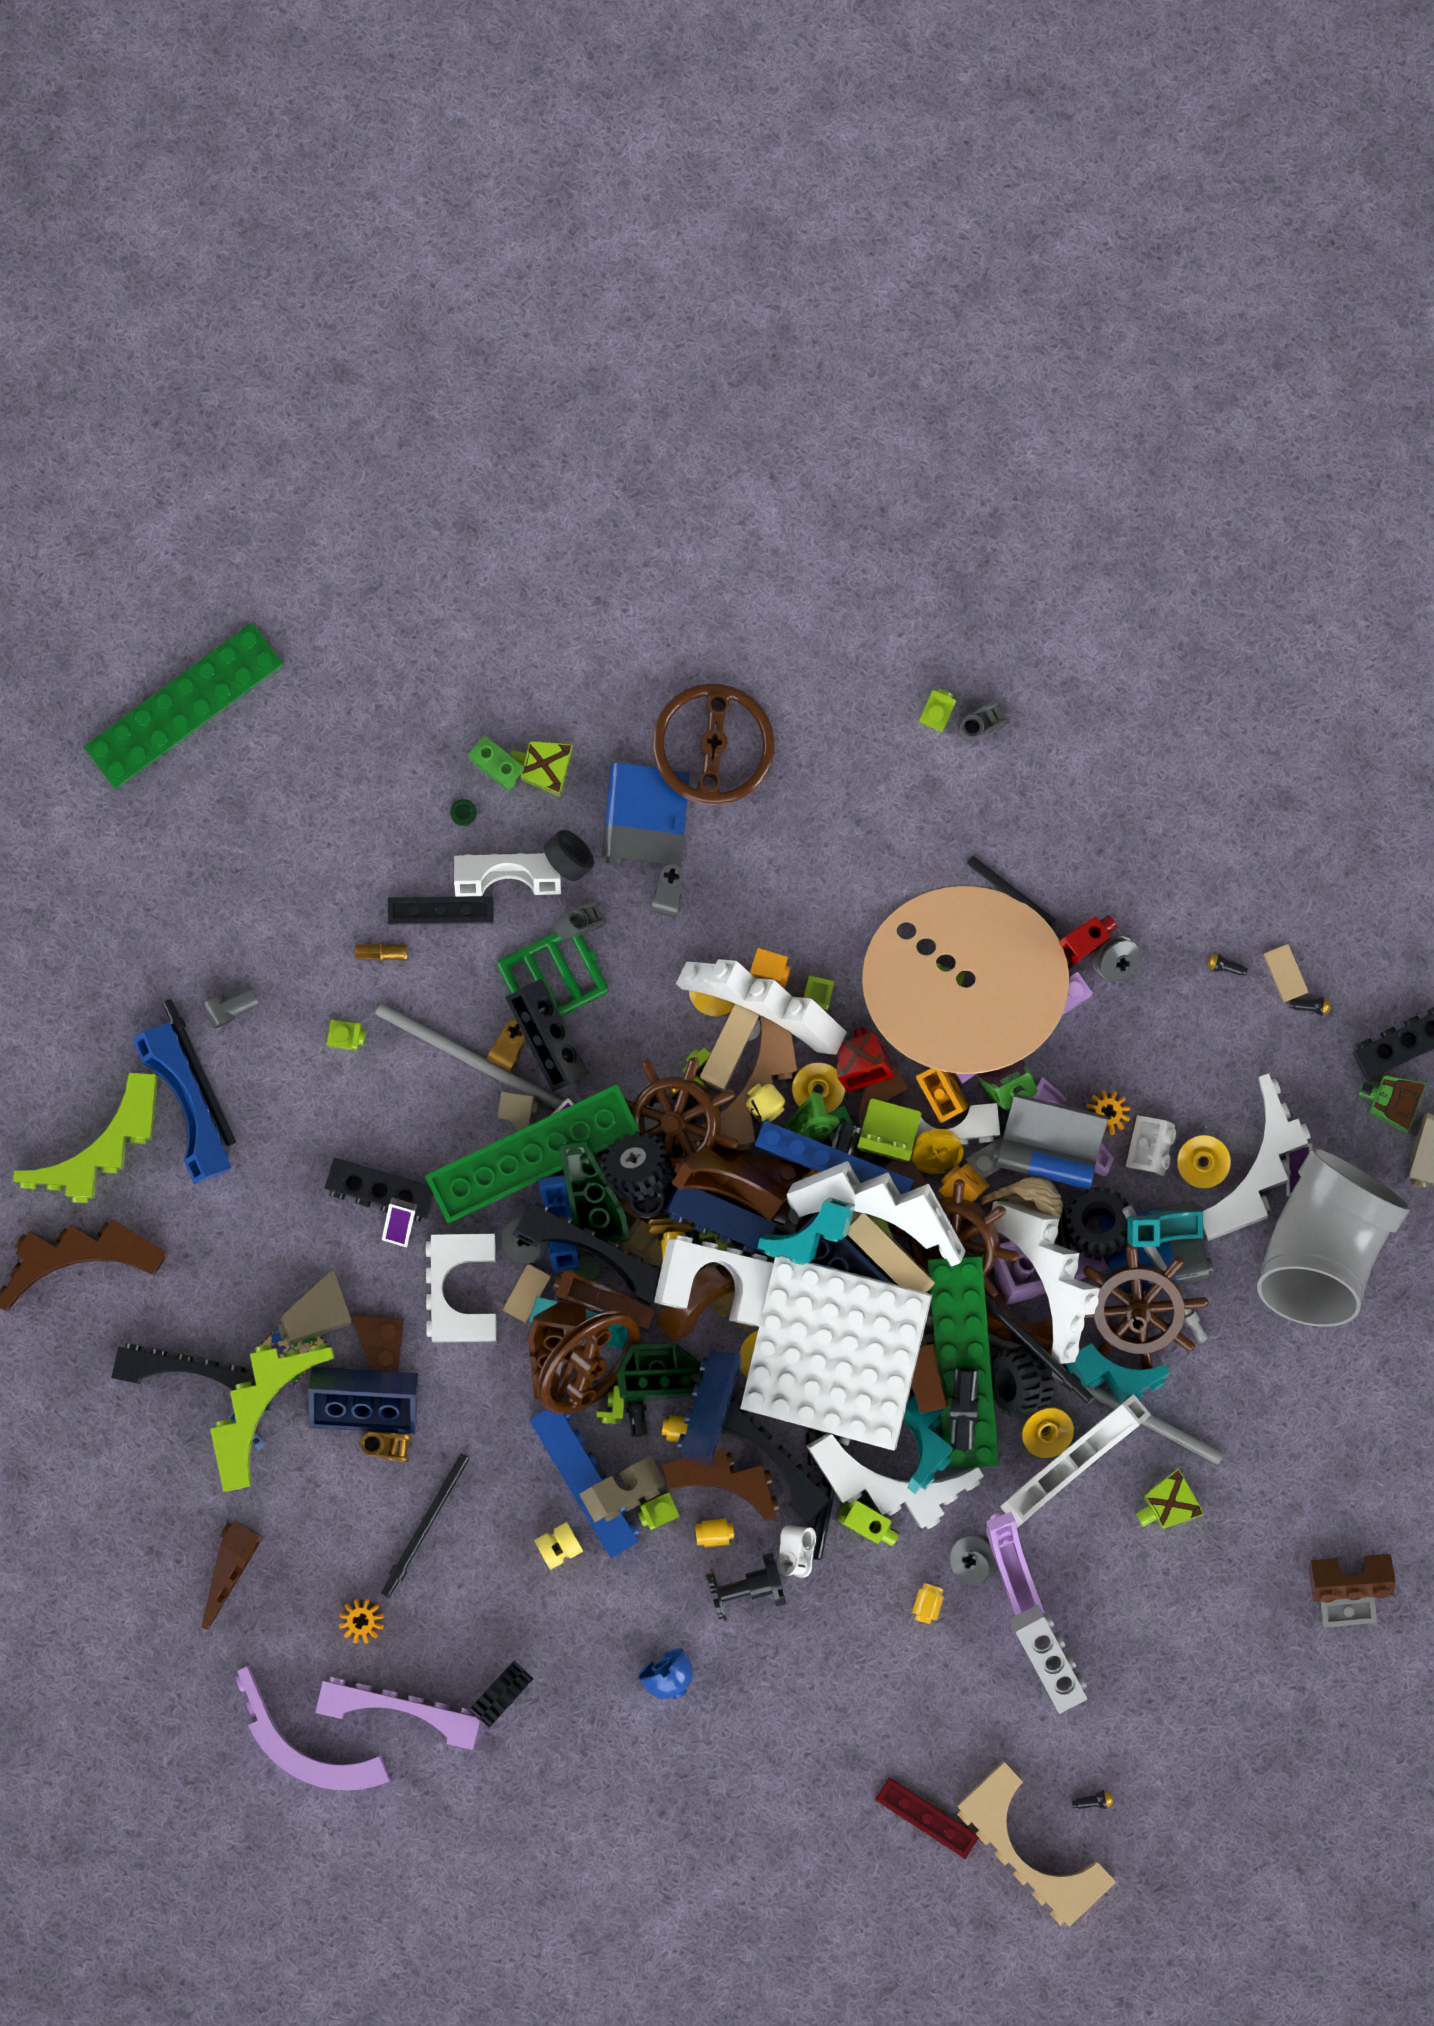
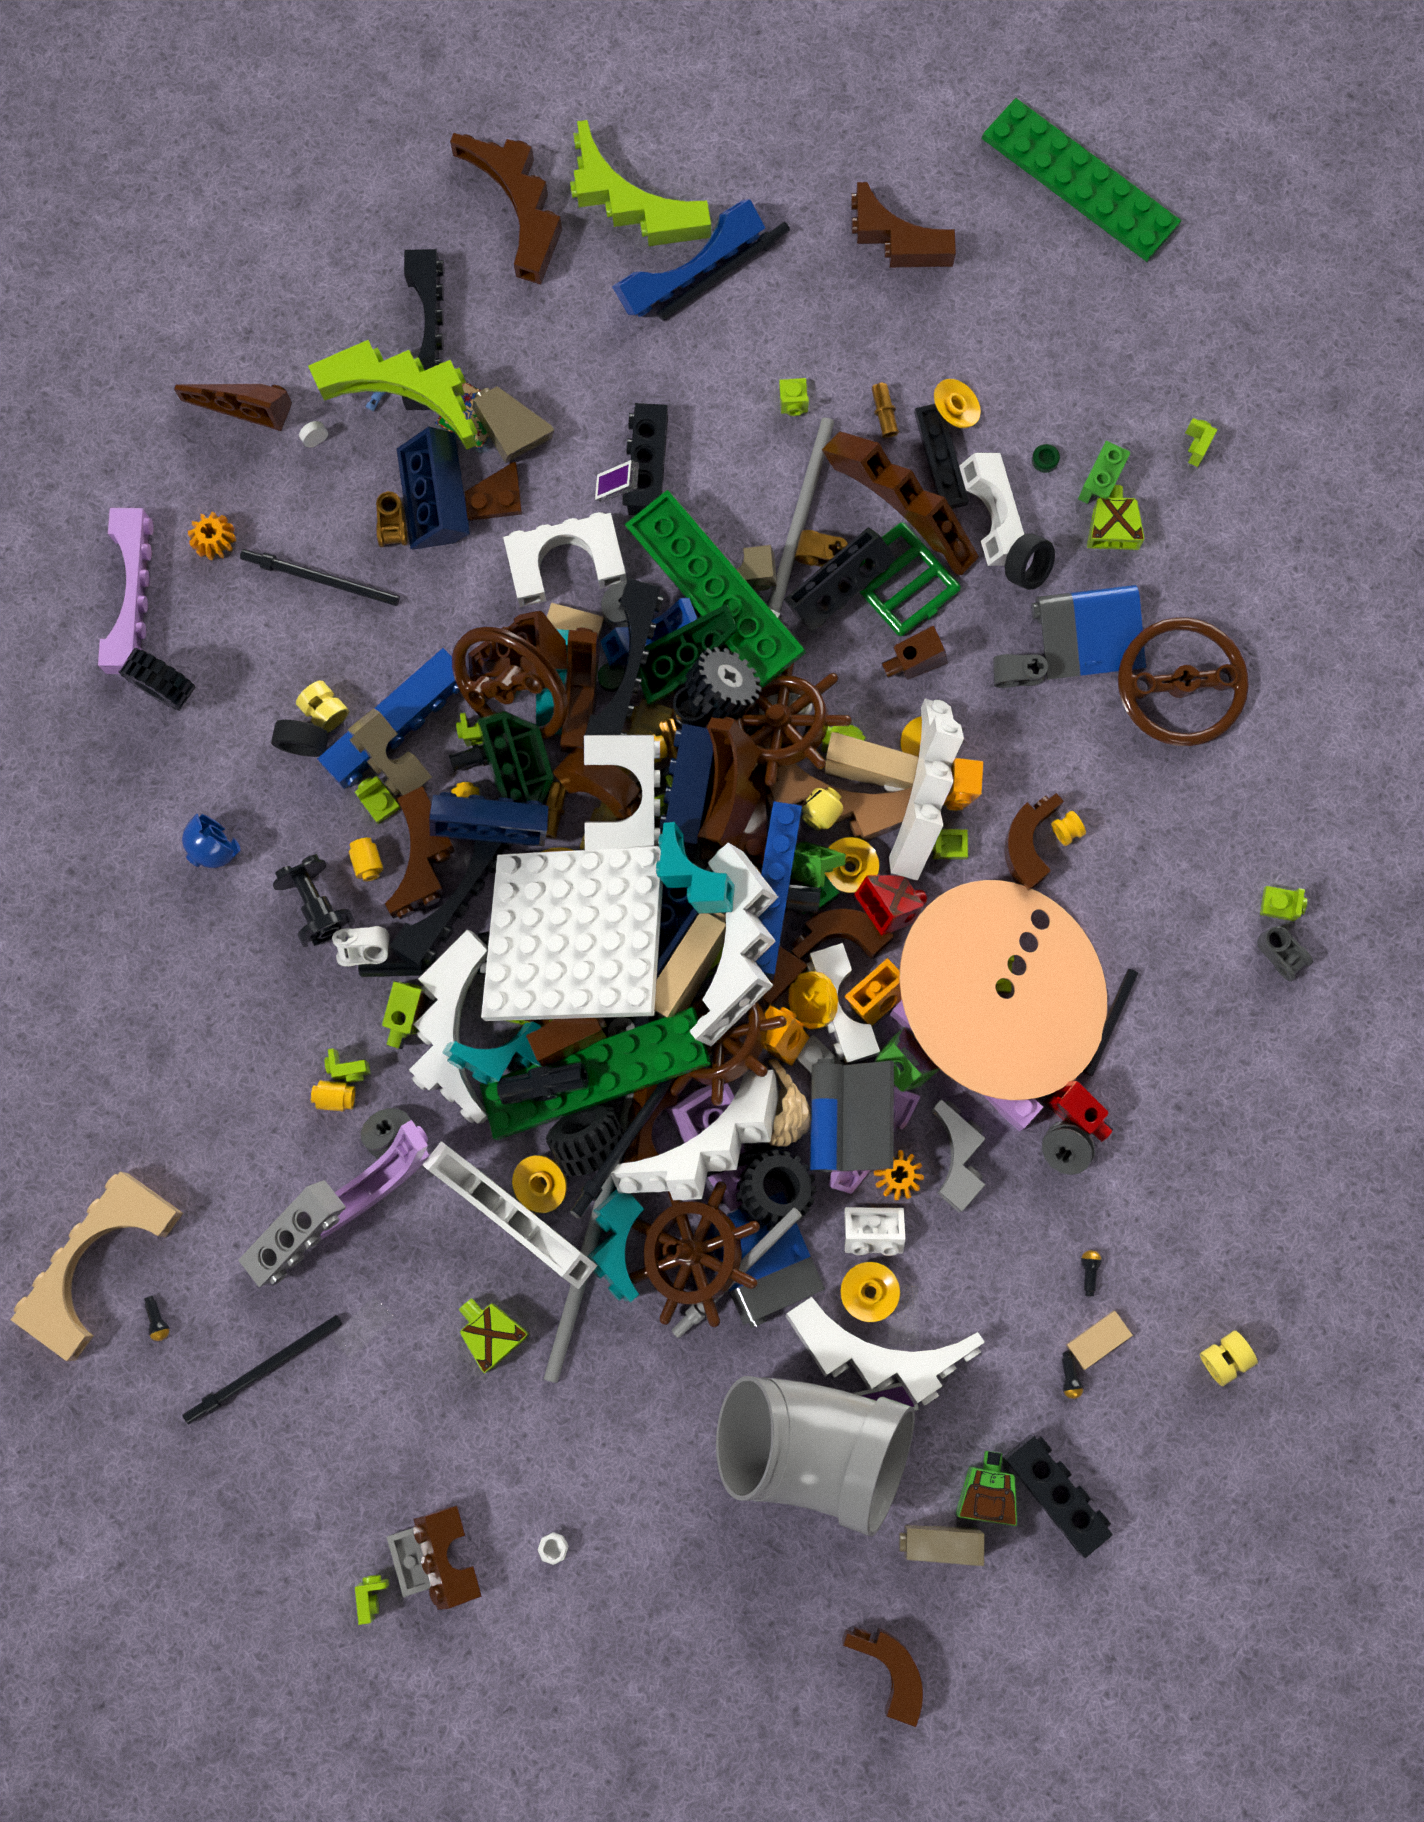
camera: 80 degrees right, 5 degrees down
(214, 891) = (903, 242): none -> reddish brown arch
(225, 1008) = (791, 277): dark grey piece -> none
(278, 1504) = (313, 434): none -> white tile
(286, 1756) = (62, 502): lavender arch -> none
(390, 875) = (957, 403): none -> yellow dish
(476, 958) = (899, 487): none -> reddish brown arch
(487, 668) = (1203, 435): none -> lime bracket
(579, 921) = (967, 594): dark grey piece -> none
(586, 1571) = (299, 738): none -> black tyre
(634, 970) = (926, 649): none -> reddish brown torso
(698, 1346) = (555, 805): none -> pearl gold axle
(827, 883) = (1068, 828): none -> yellow wheel
(830, 931) = (1020, 853): none -> reddish brown arch
(889, 1130) = (822, 942): lime bracket -> none
(909, 1582) = (350, 1071): none -> lime bracket
(927, 1818) = (108, 1144): dark red tile -> none
(1127, 1059) = (964, 1138): none -> light grey arch
(1163, 1227) = (787, 1258): teal arch -> none
(1176, 1761) = (213, 1400): none -> black bar
(1320, 859) = (1236, 1351): none -> light yellow wheel
(1363, 1485) = (553, 1548): none -> white tile
(1375, 1655) = (367, 1603): none -> lime bracket

